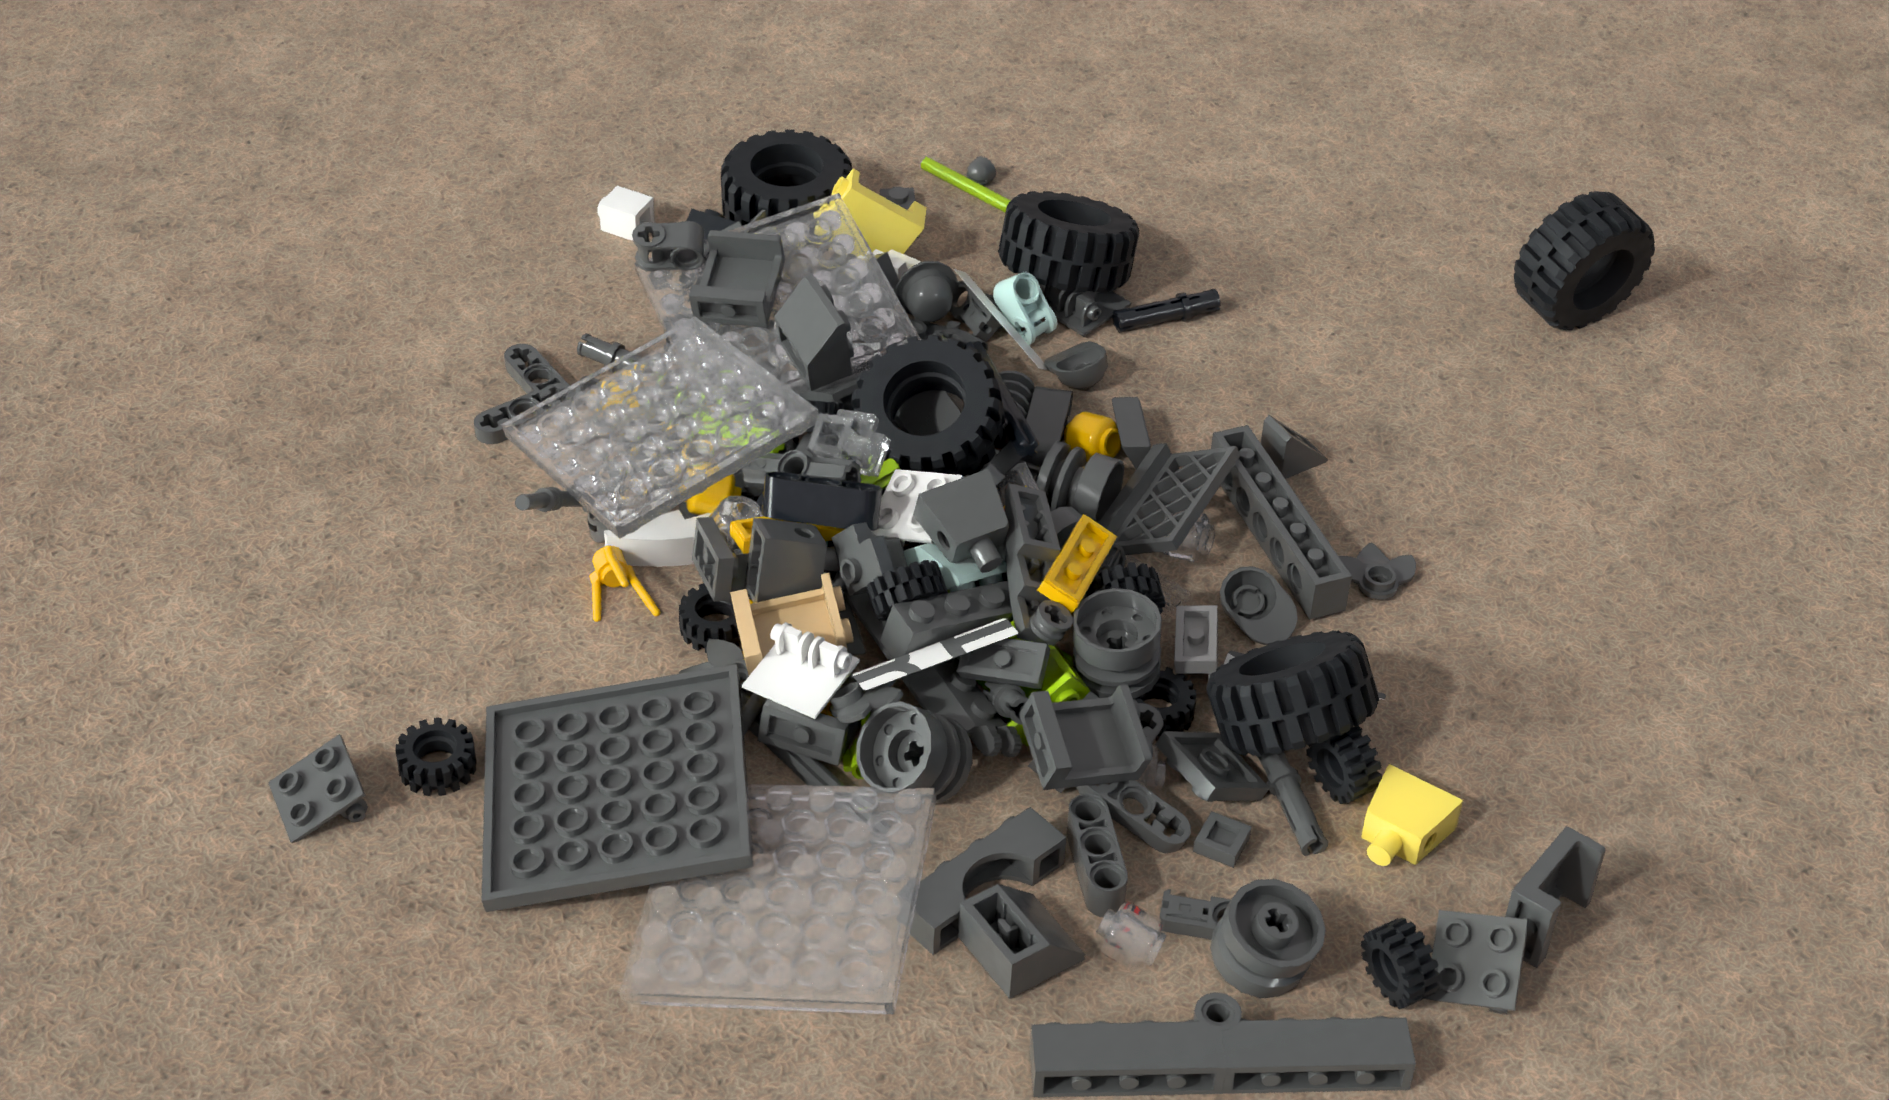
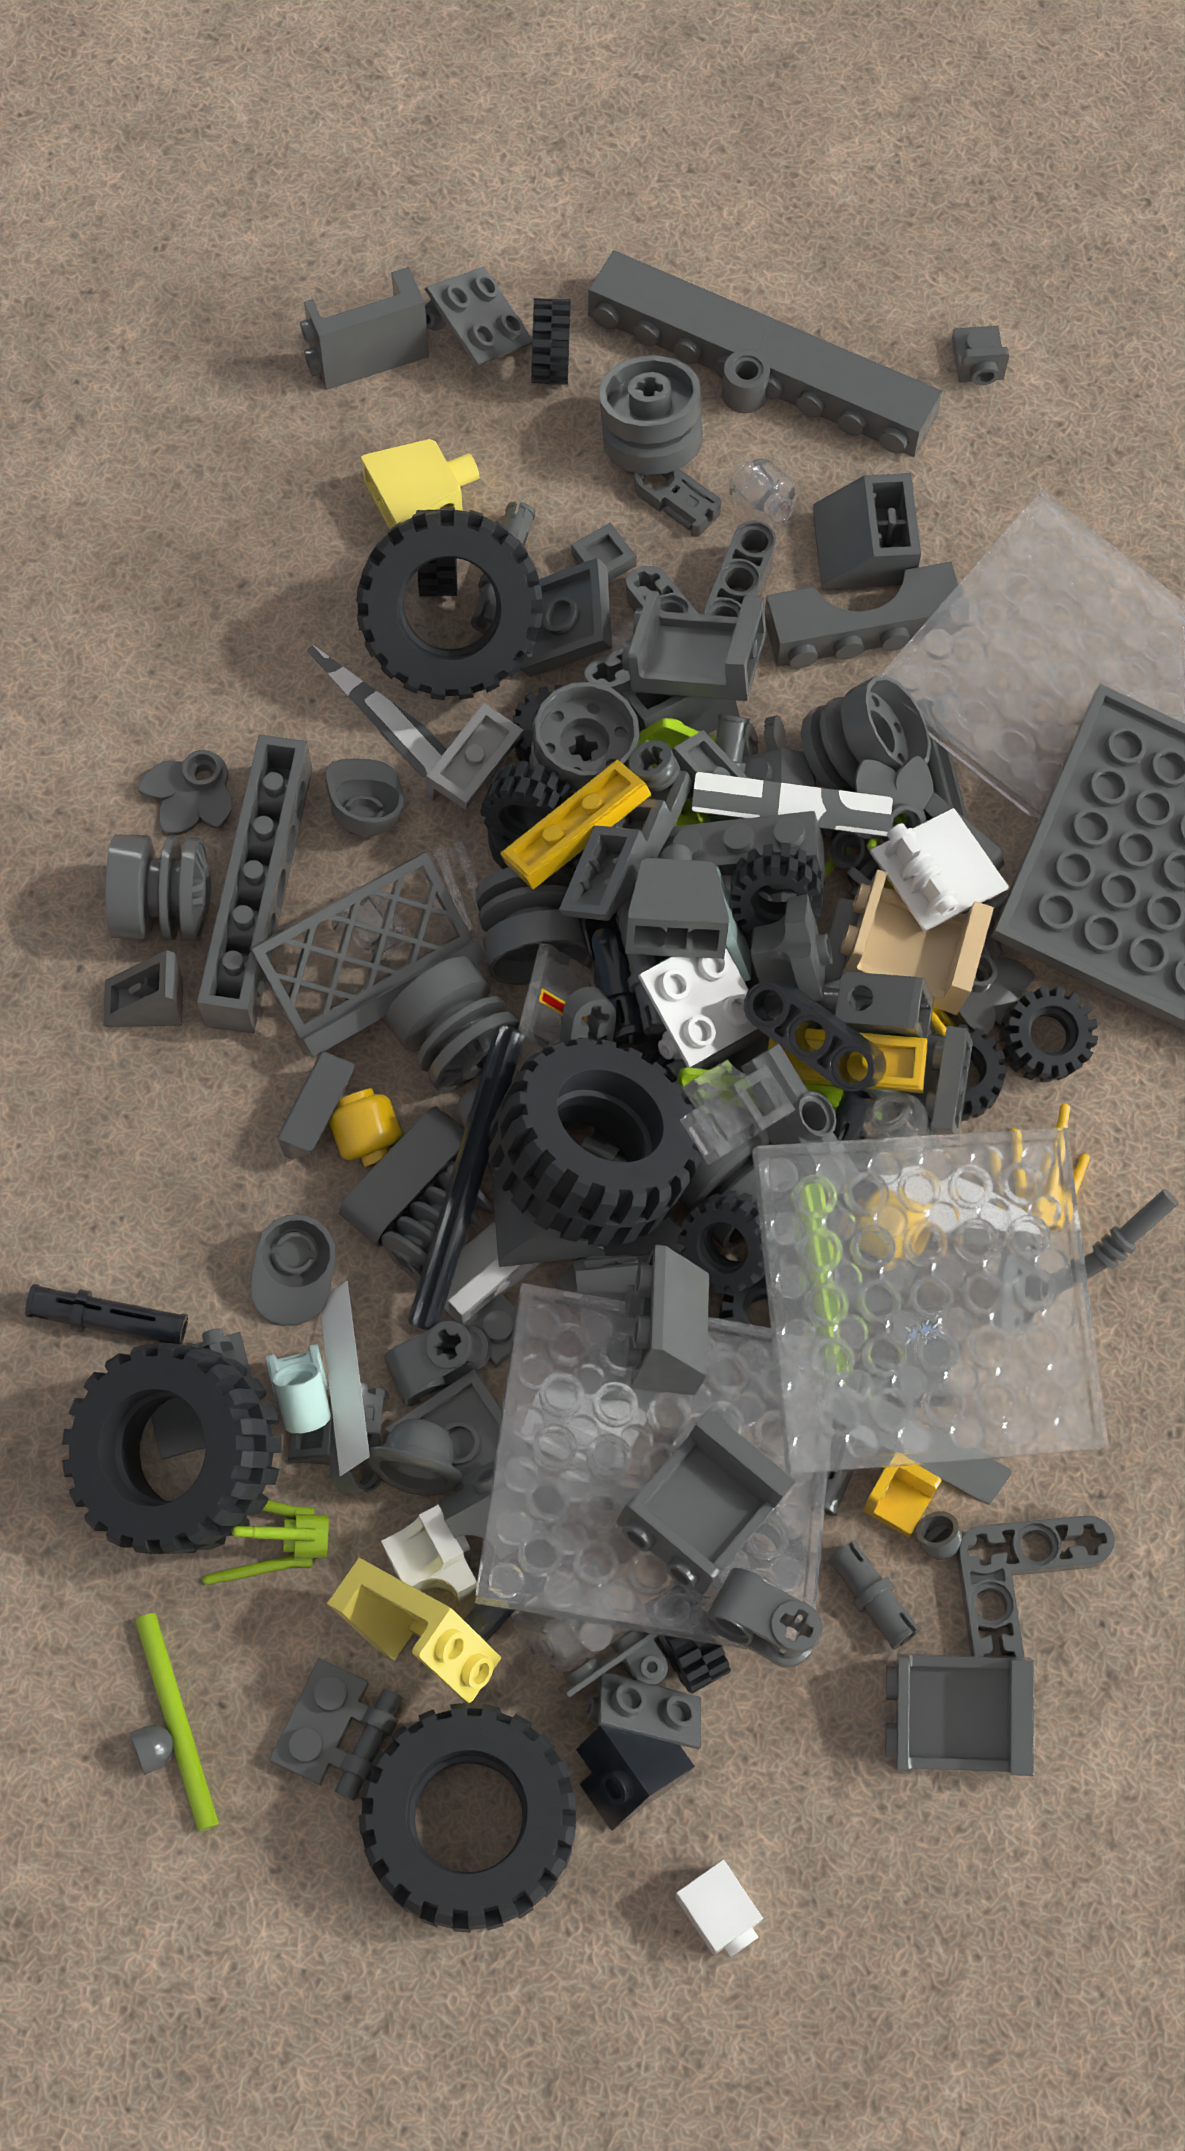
camera: 150 degrees left, 25 degrees up
(534, 323) = (962, 1713): none -> dark grey panel
(662, 652) = (1074, 1021): none -> black tyre
(973, 262) = (303, 1535): none -> lime plant
(1338, 481) = (149, 887): none -> dark grey wheel

